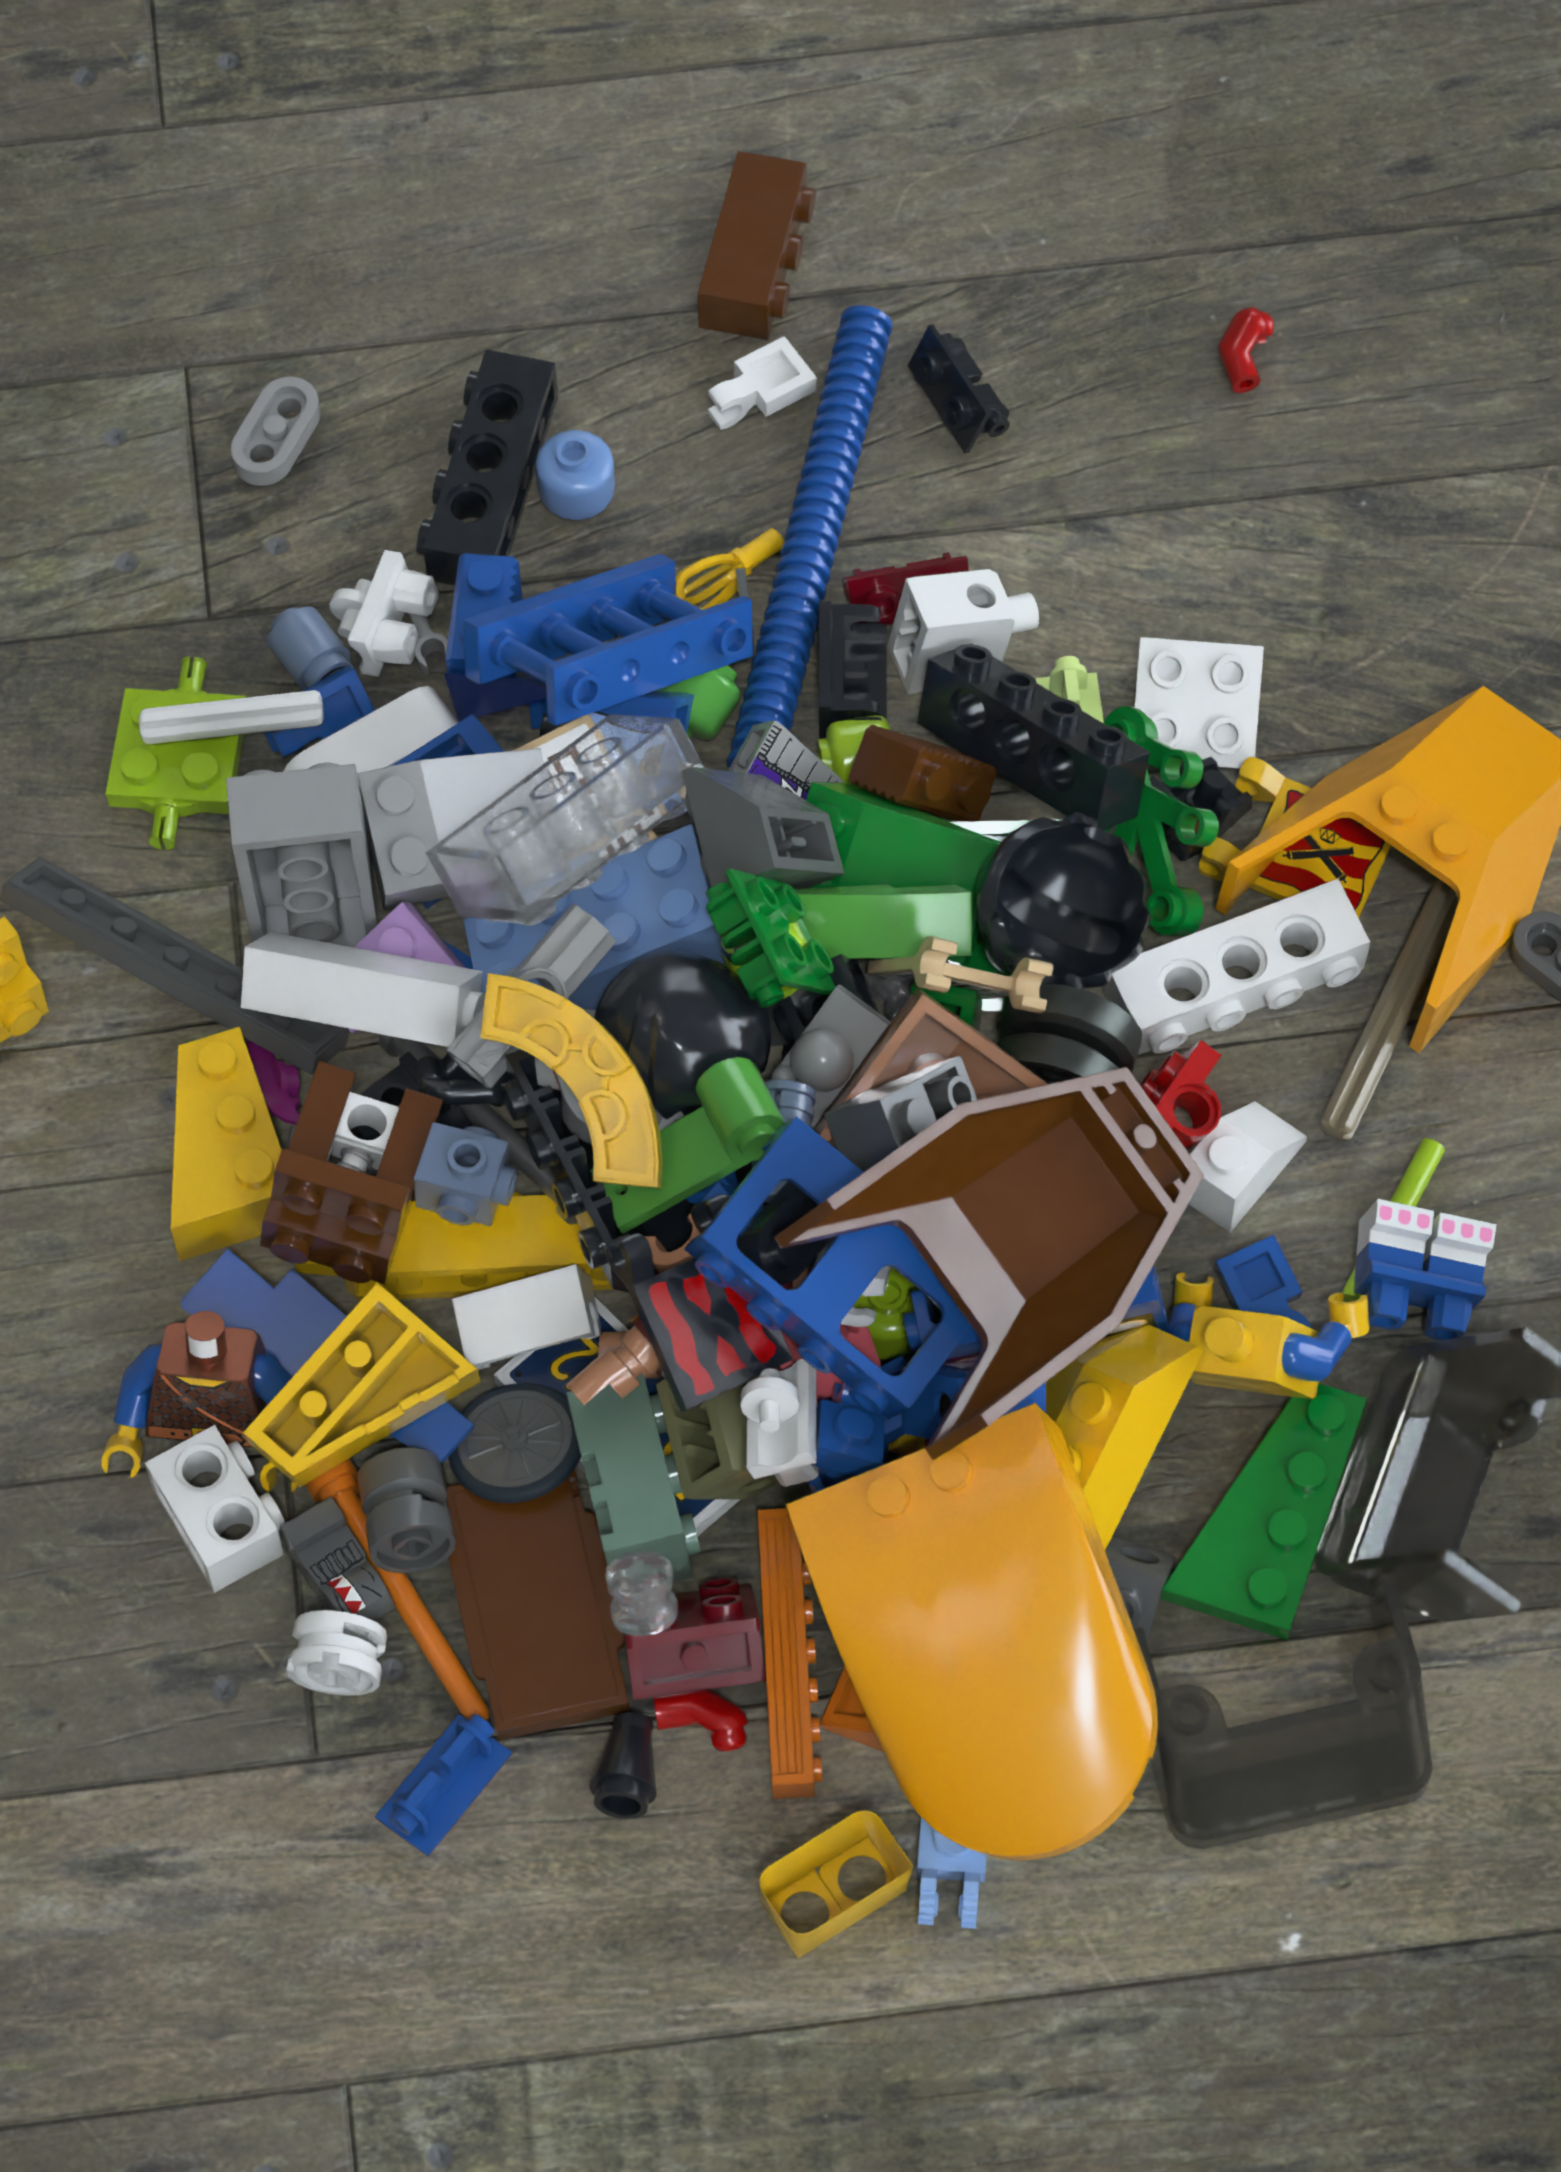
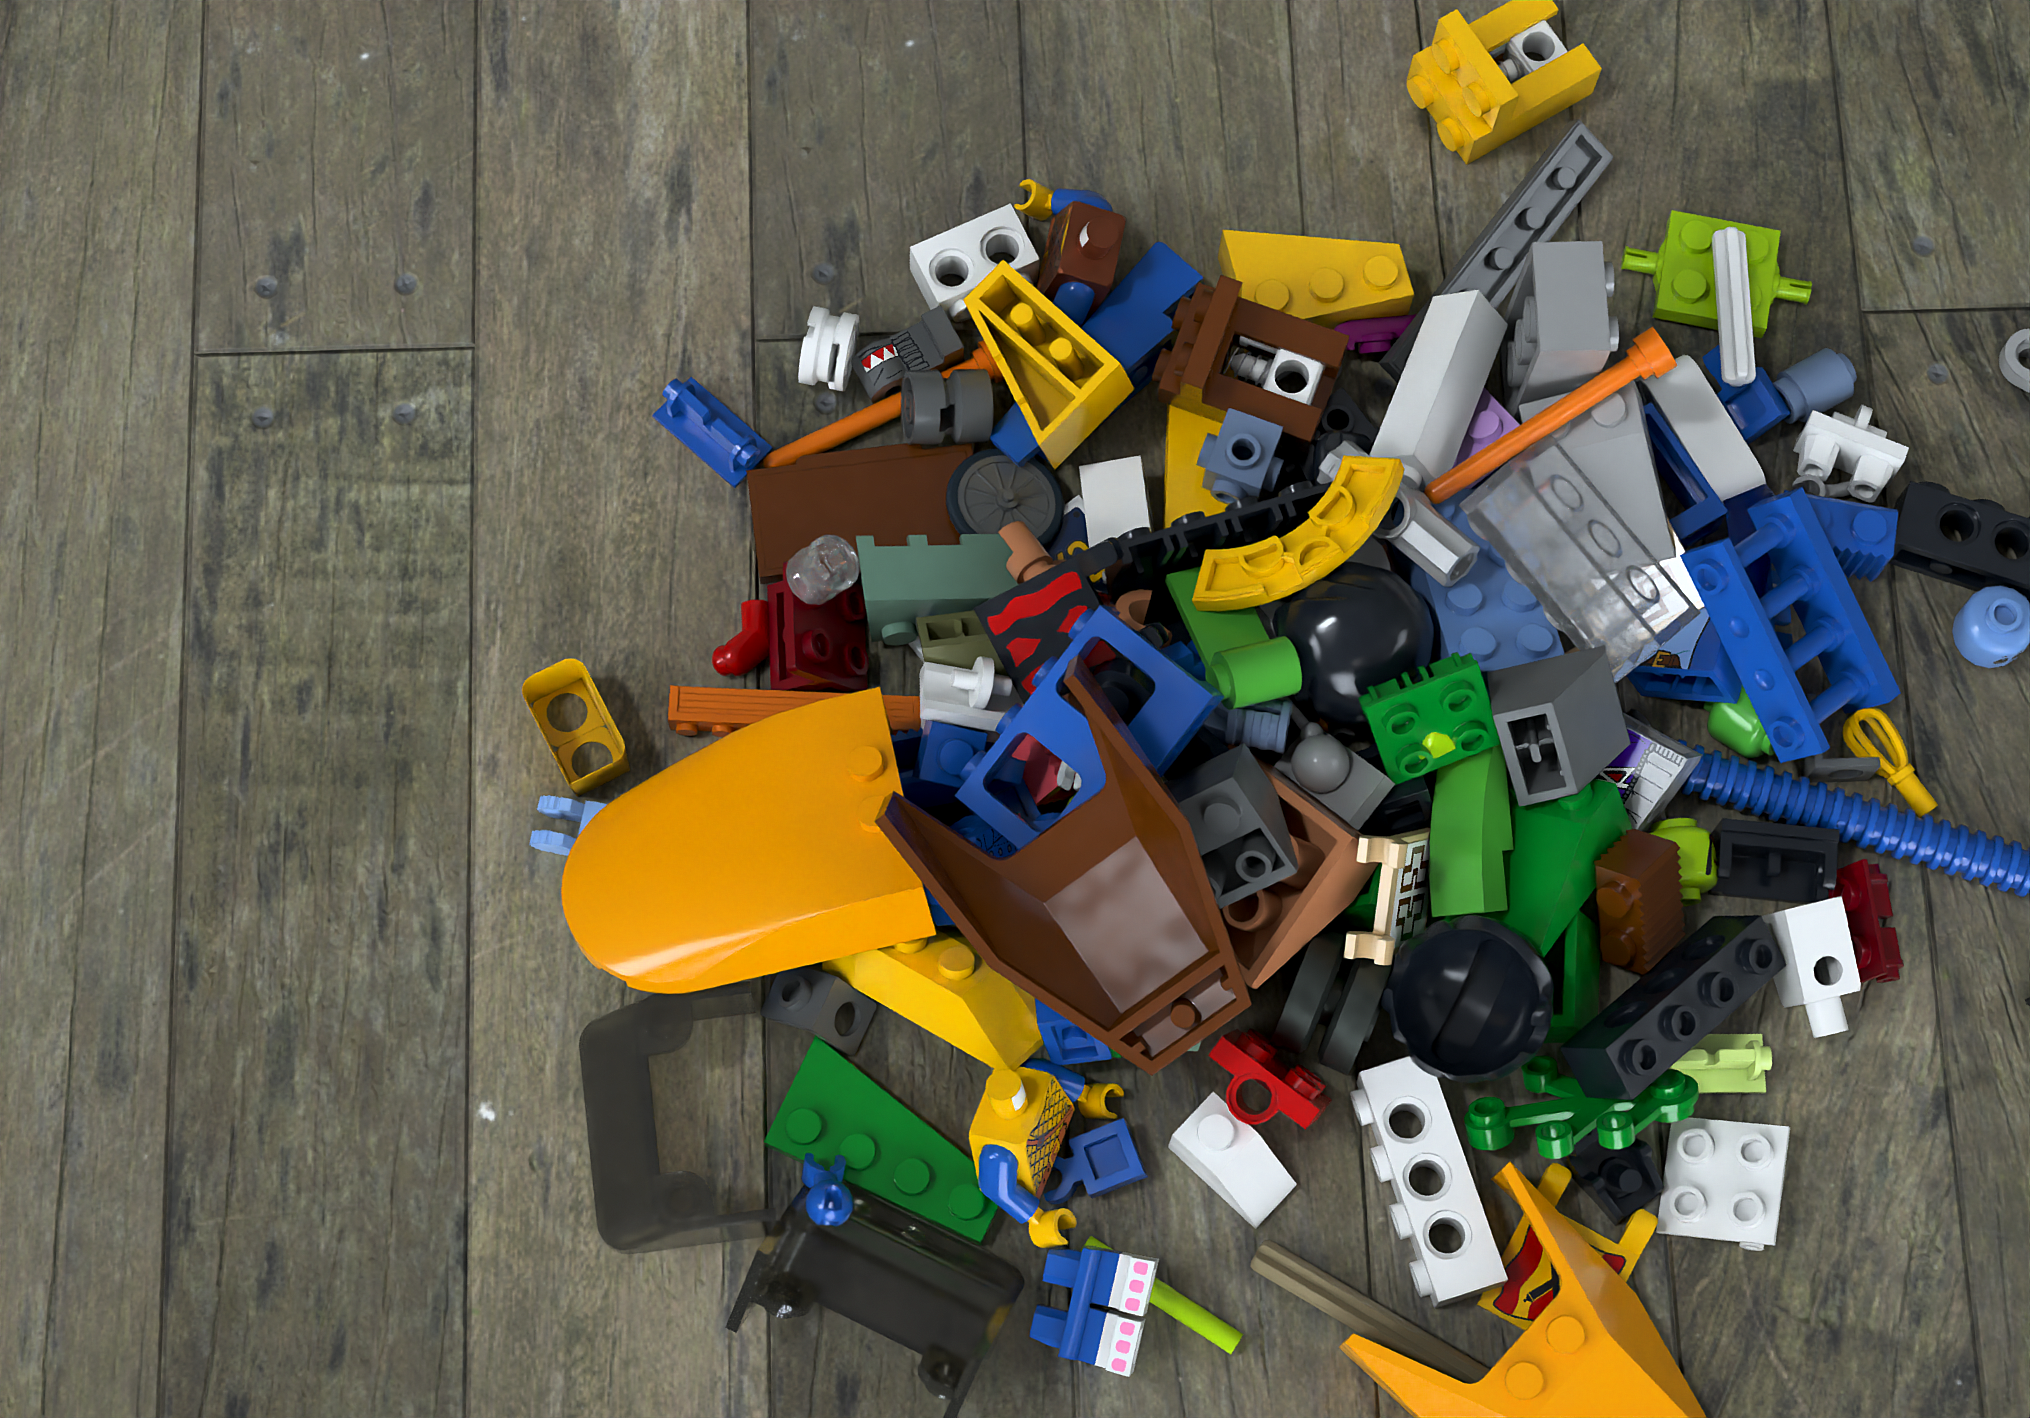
camera: 90 degrees right, 10 degrees up
(344, 745) = (1645, 358): none -> orange piece
(626, 1771) = (704, 573): black cone -> none
(1360, 1527) = (828, 1199): none -> blue arm

